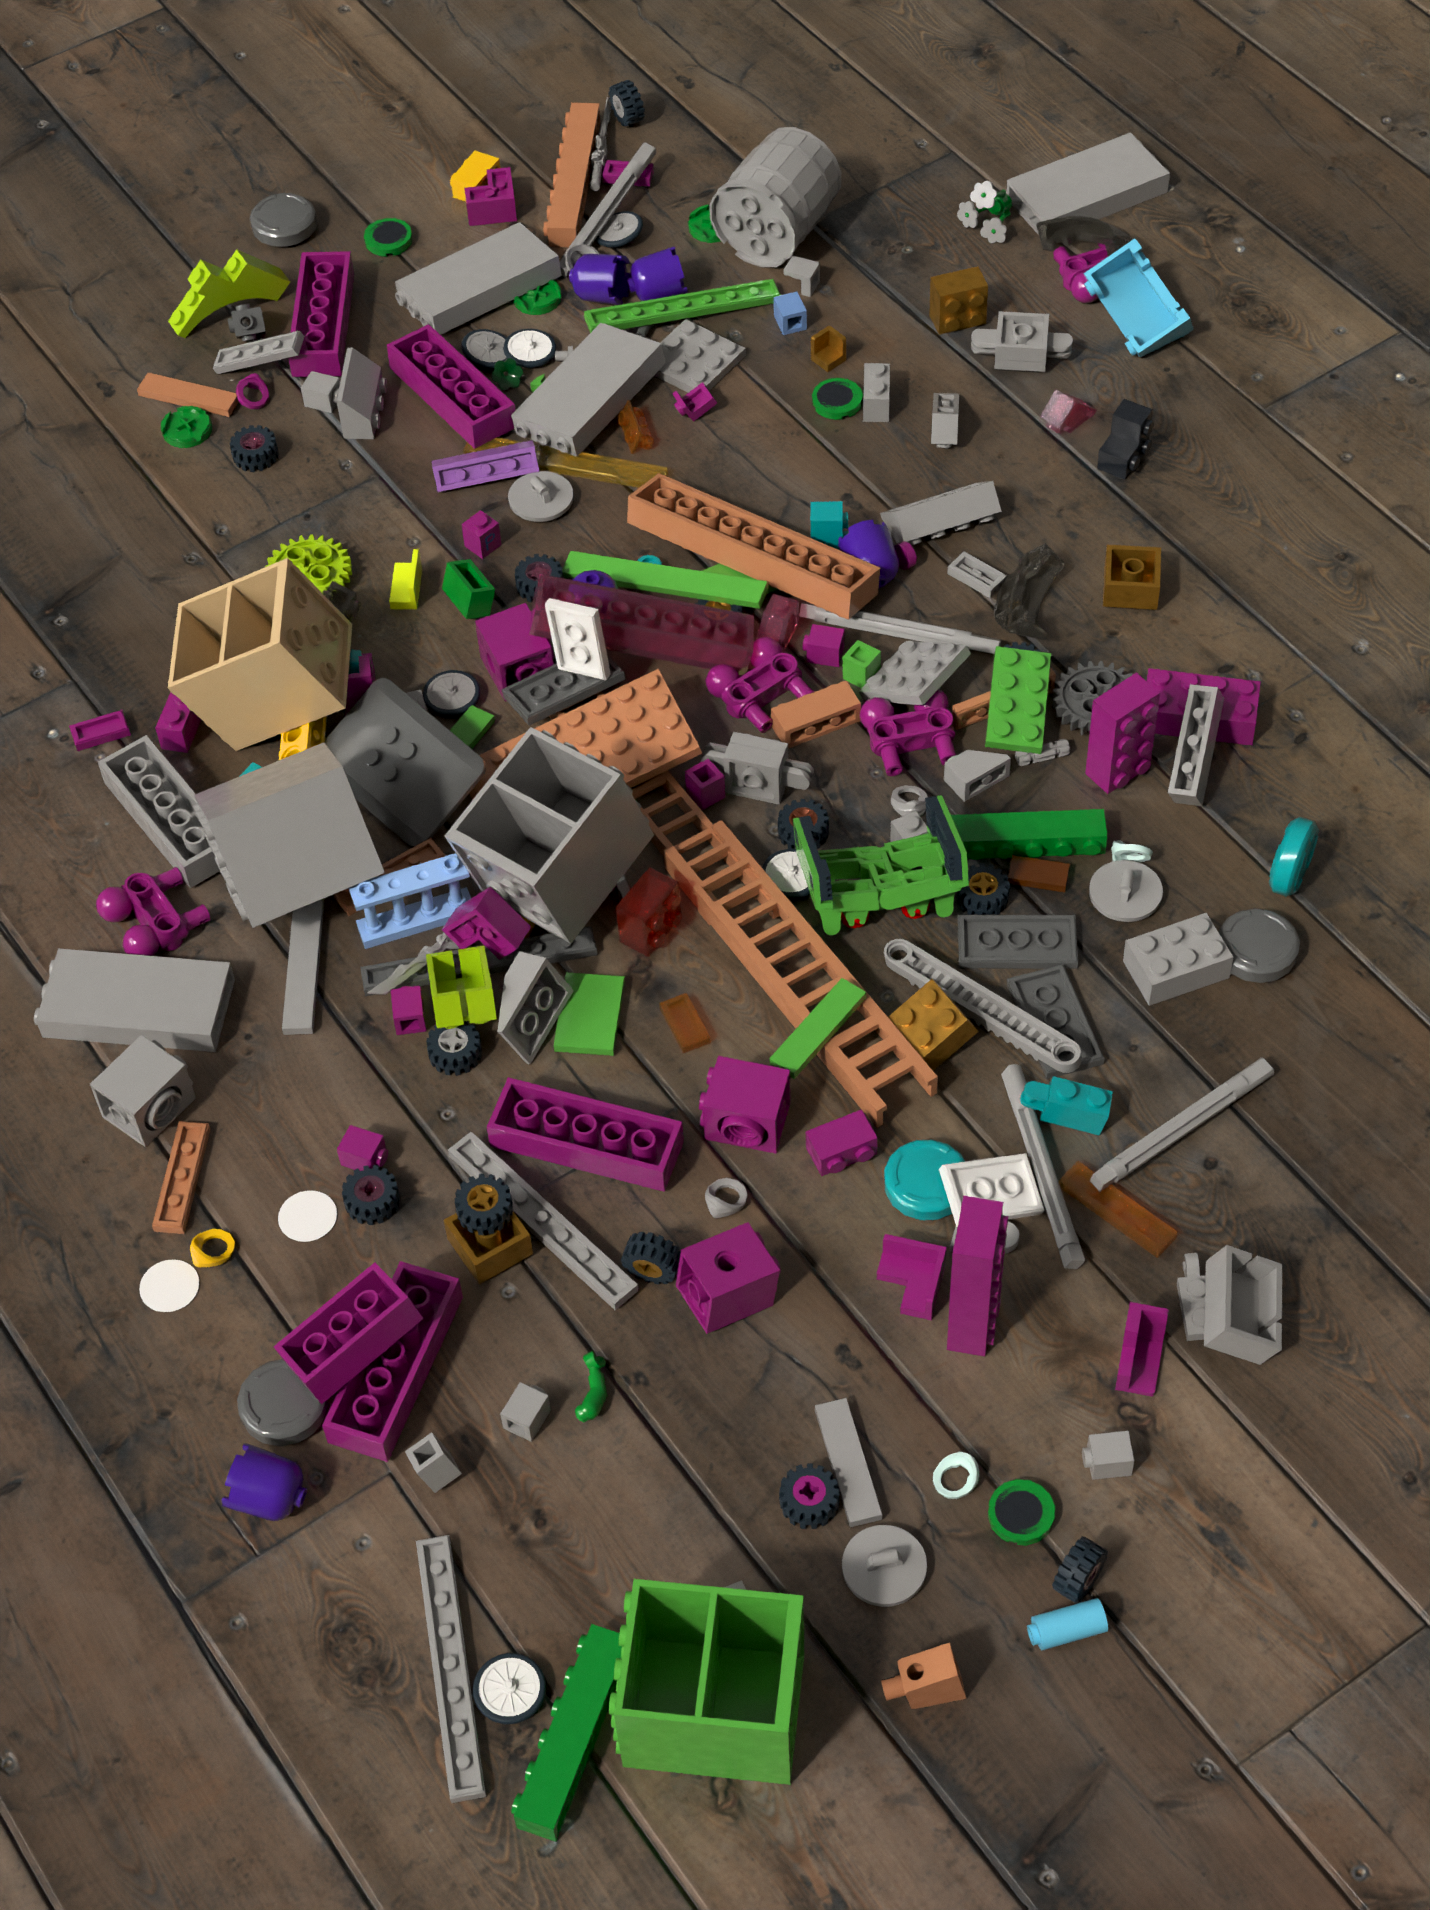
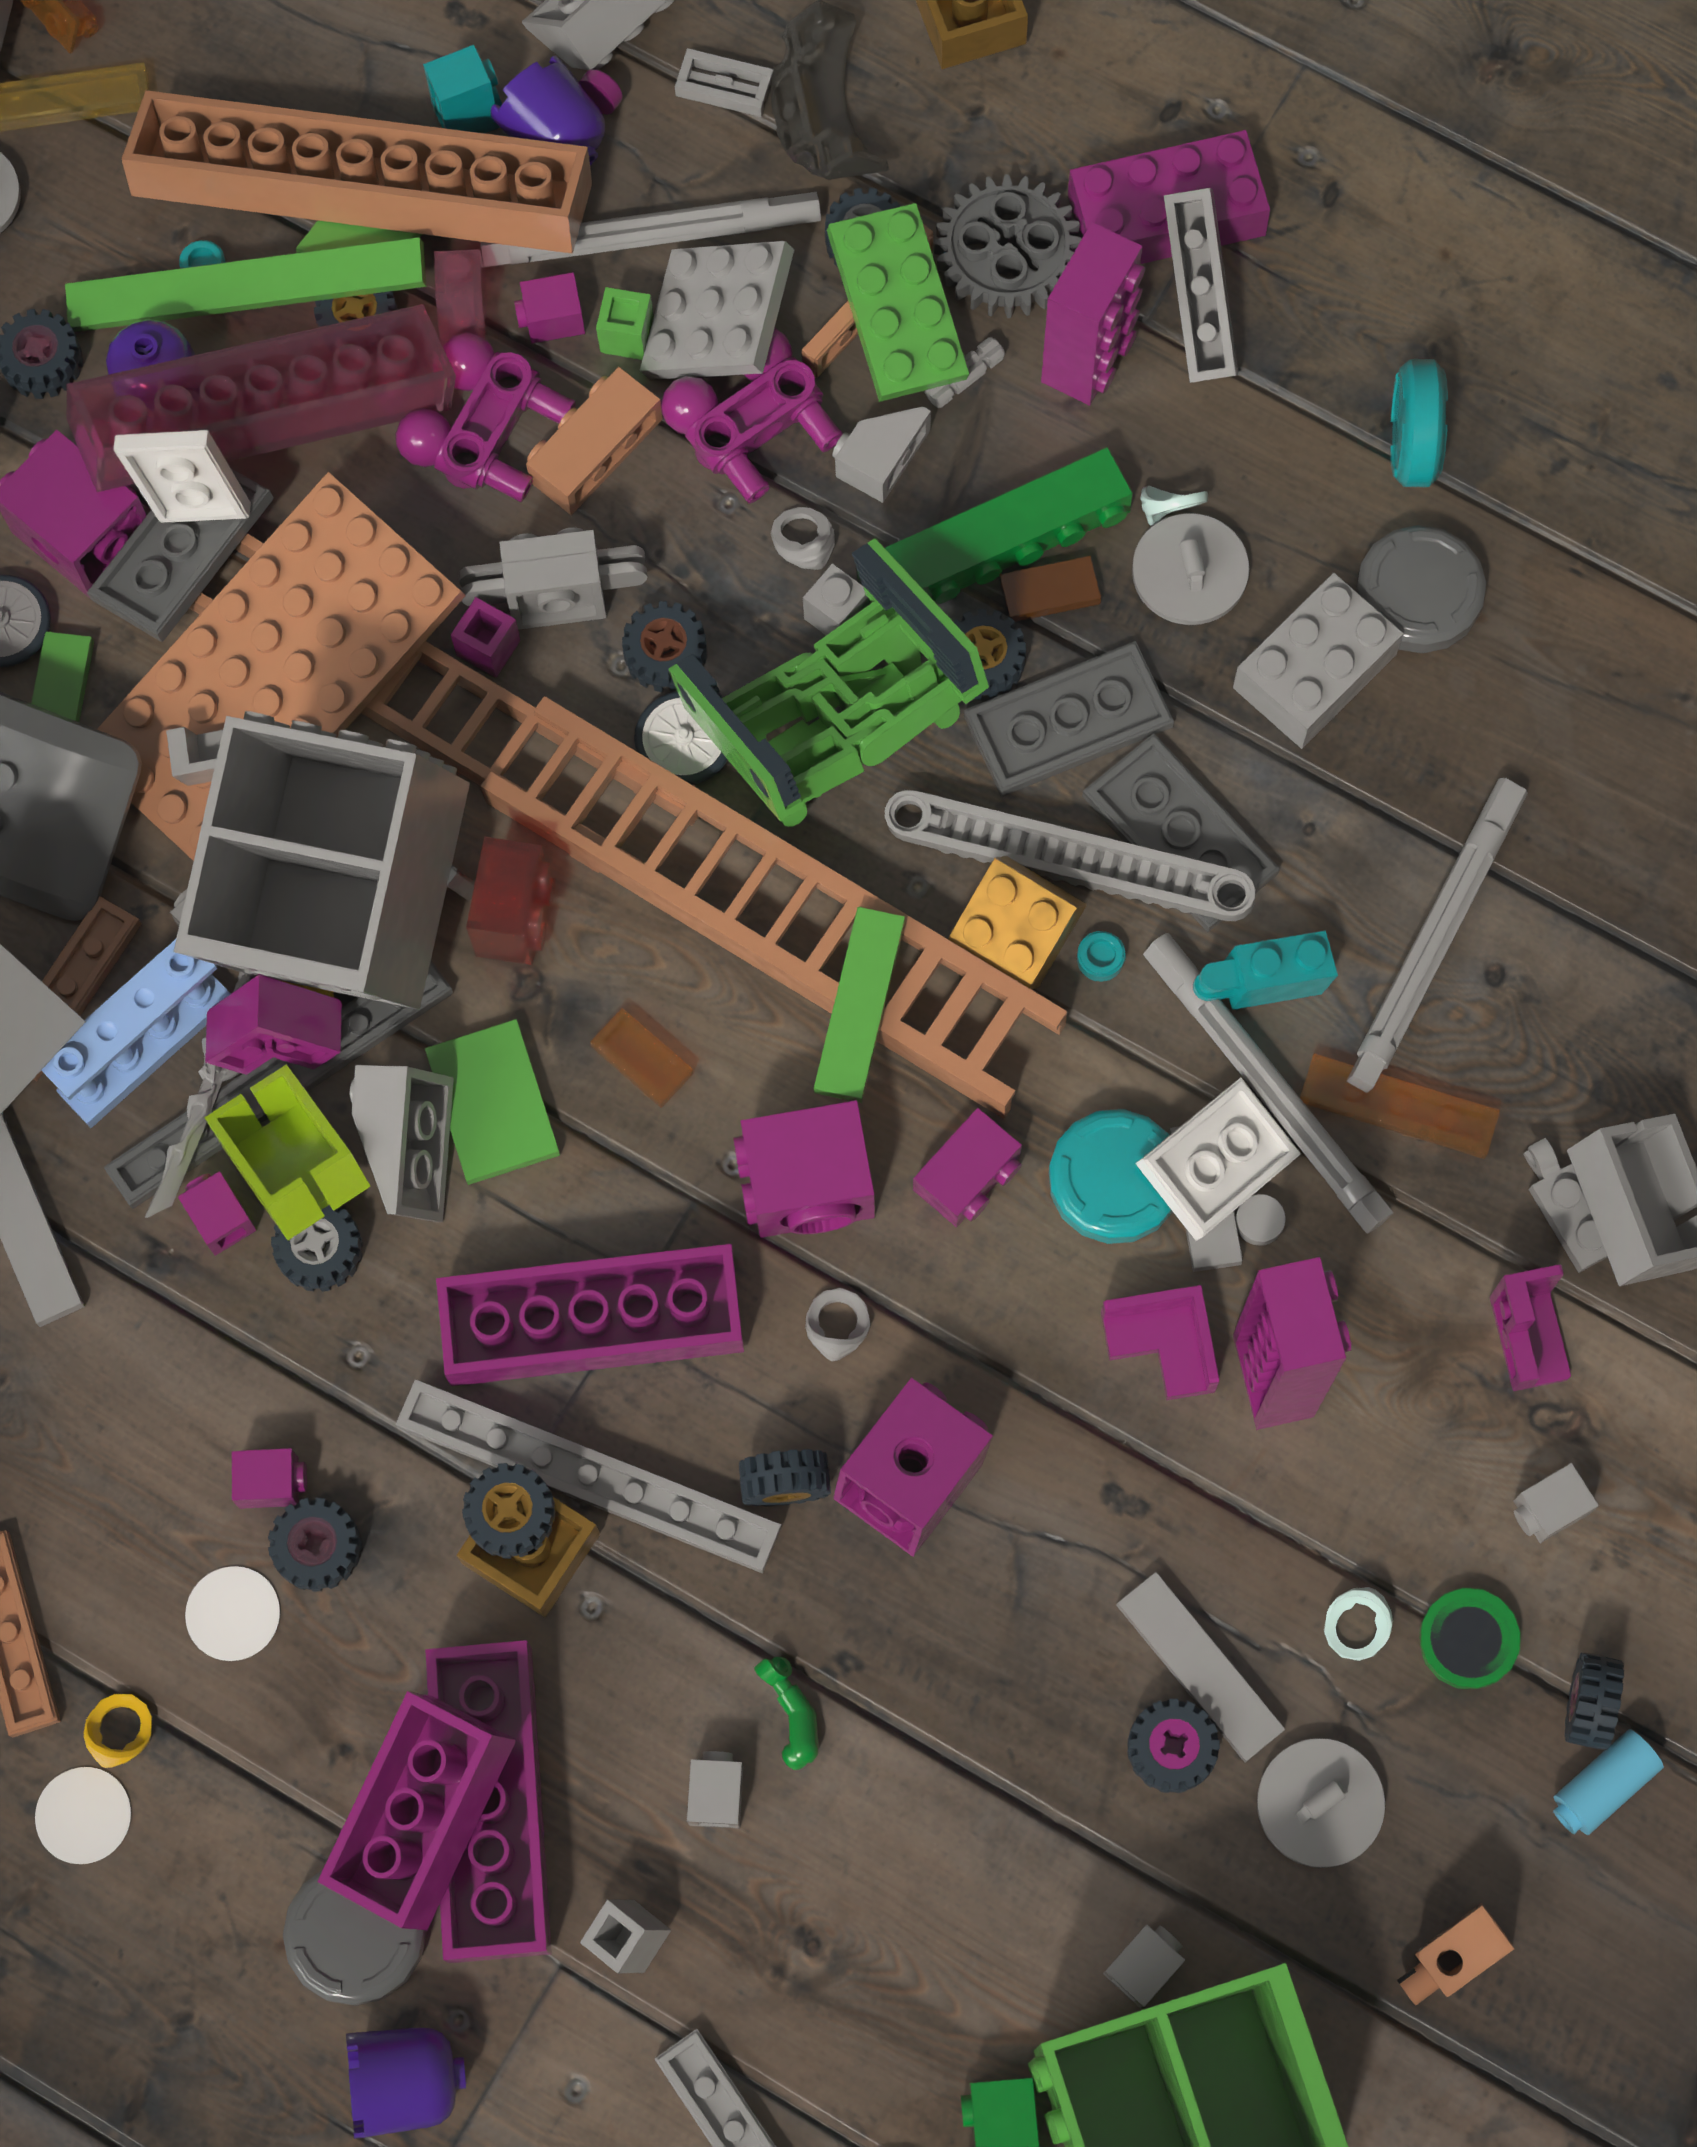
camera: 25 degrees left, 20 degrees up
(976, 1067) = (1101, 956): none -> teal tile

